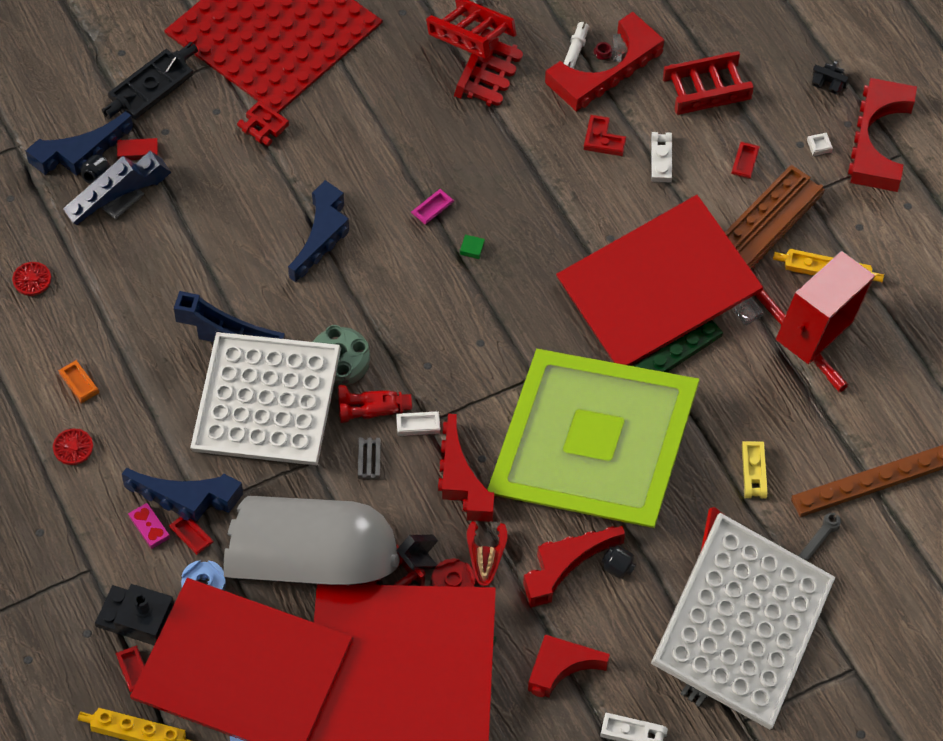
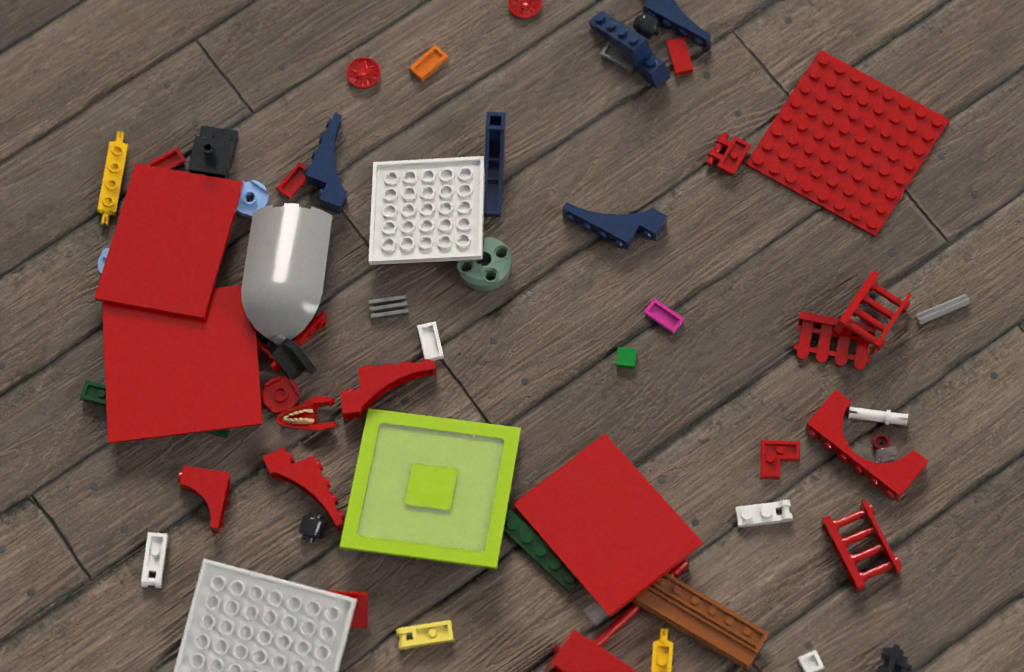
camera: 85 degrees right, 10 degrees up
(149, 525) = (297, 147): dark pink tile -> none
(151, 83) = (753, 50): black plate -> none
(374, 403) = (443, 302): red piece -> none
(745, 160) = (775, 592): red tile -> none

